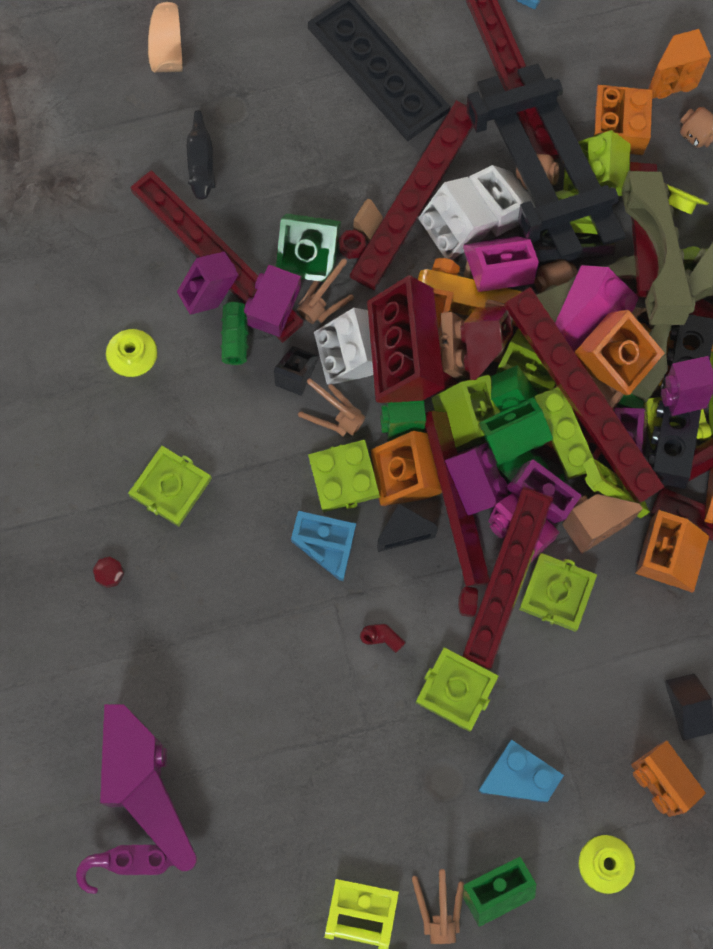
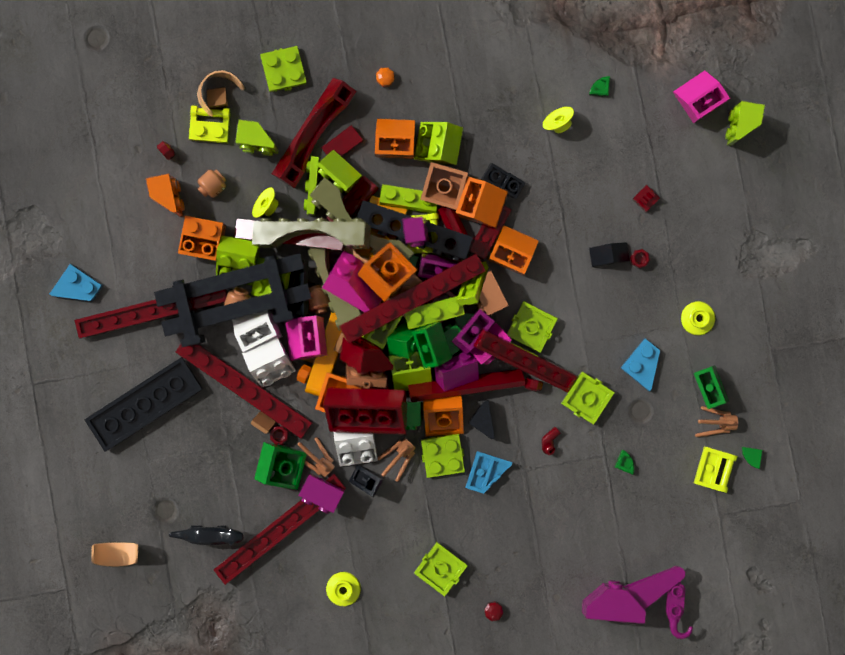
camera: 80 degrees left, 15 degrees up
(207, 282) = (305, 536): magenta brick -> none
(234, 334) = (339, 520): green axle -> none
(358, 761) = (625, 462): none -> green tile
(668, 780) = (654, 275): orange slope -> none
(692, 754) = (640, 258): none -> dark red tile

